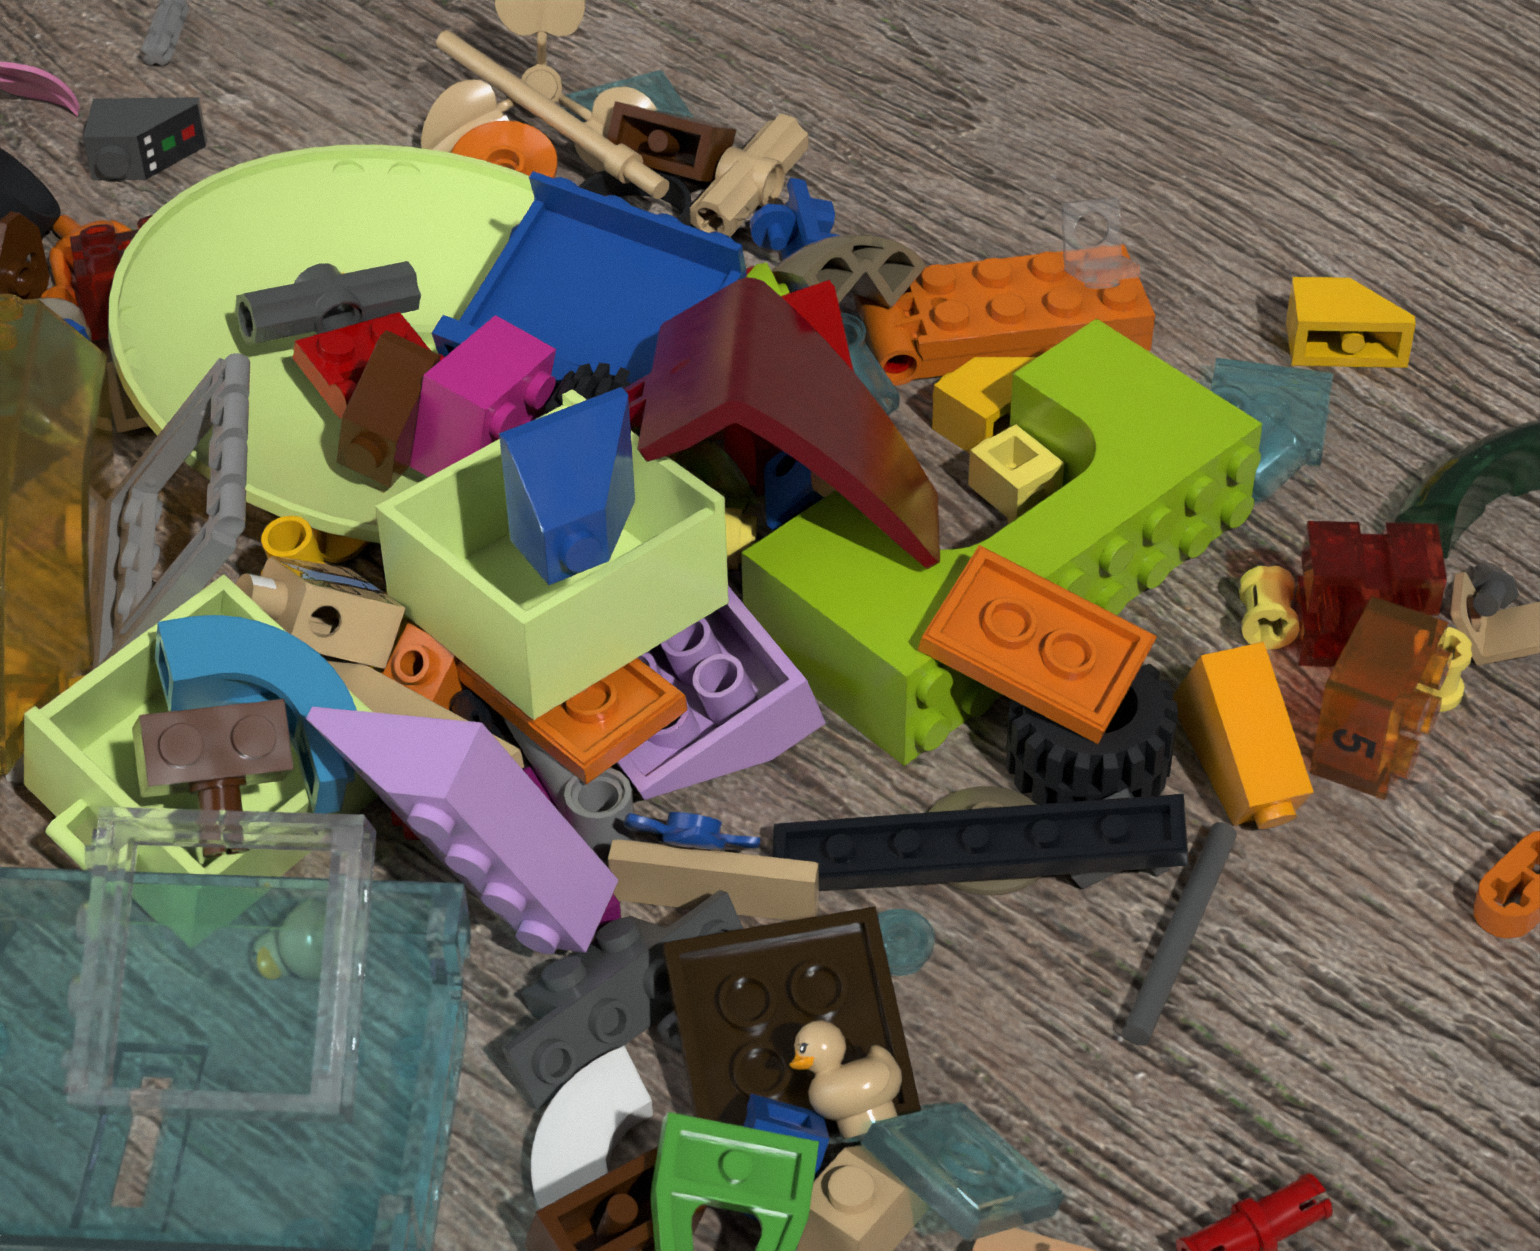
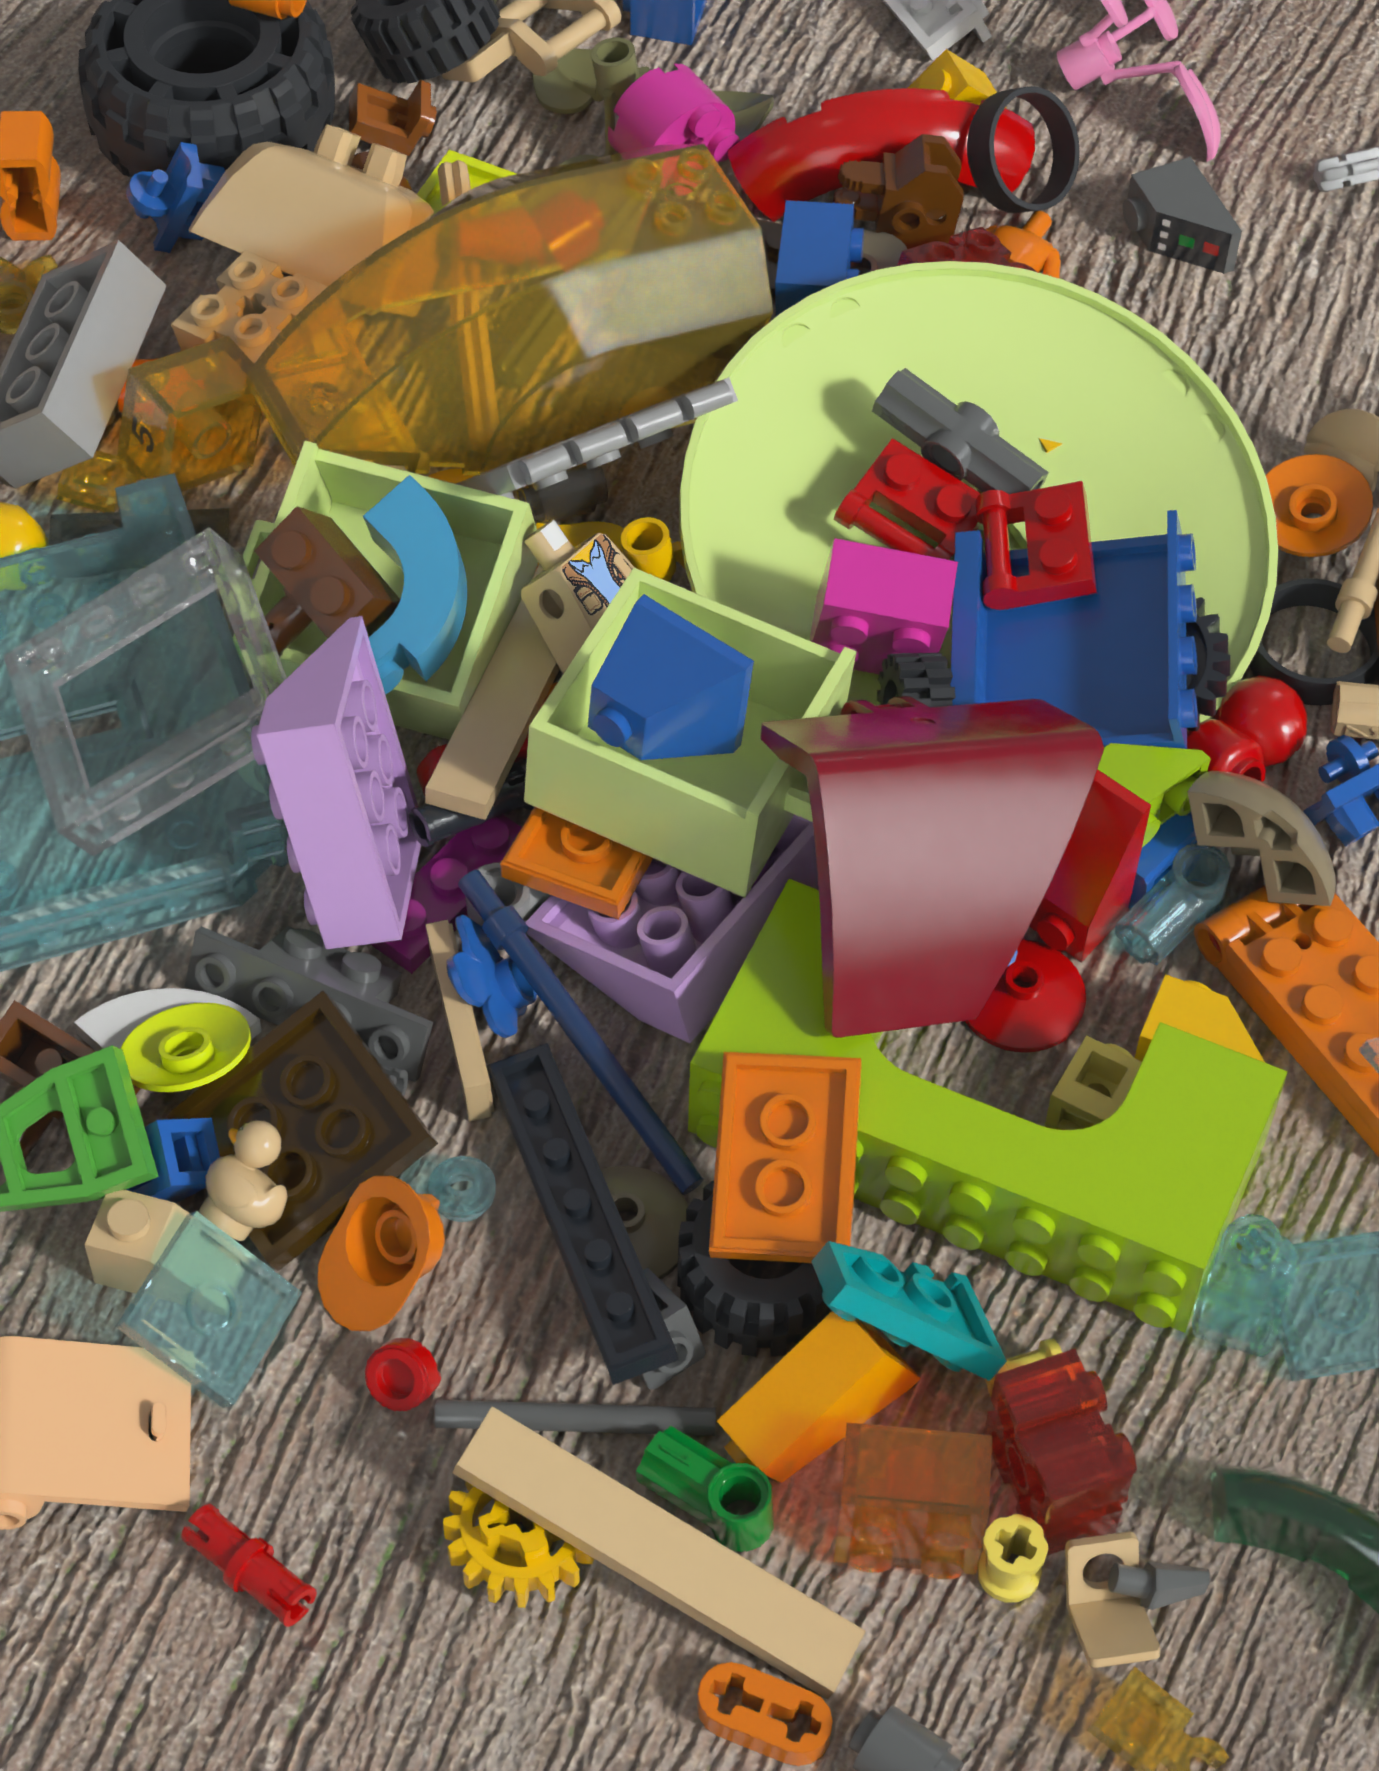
camera: 65 degrees right, 10 degrees up
(383, 410) = (809, 534): reddish brown slope -> none
(480, 275) = (1056, 545): none -> red plate
(633, 1092) = (186, 1047): none -> neon yellow dish
(655, 795) = (508, 932): none -> dark blue bar
(962, 1011) = (379, 1252): none -> orange piece
(1092, 1040) = (401, 1374): none -> red tile
(1213, 627) = (910, 1307): none -> teal wing
(1293, 994) = (499, 1540): none -> yellow gear
(1311, 841) = (705, 1485): none -> green piece
(1360, 891) = (659, 1552): none -> tan tile

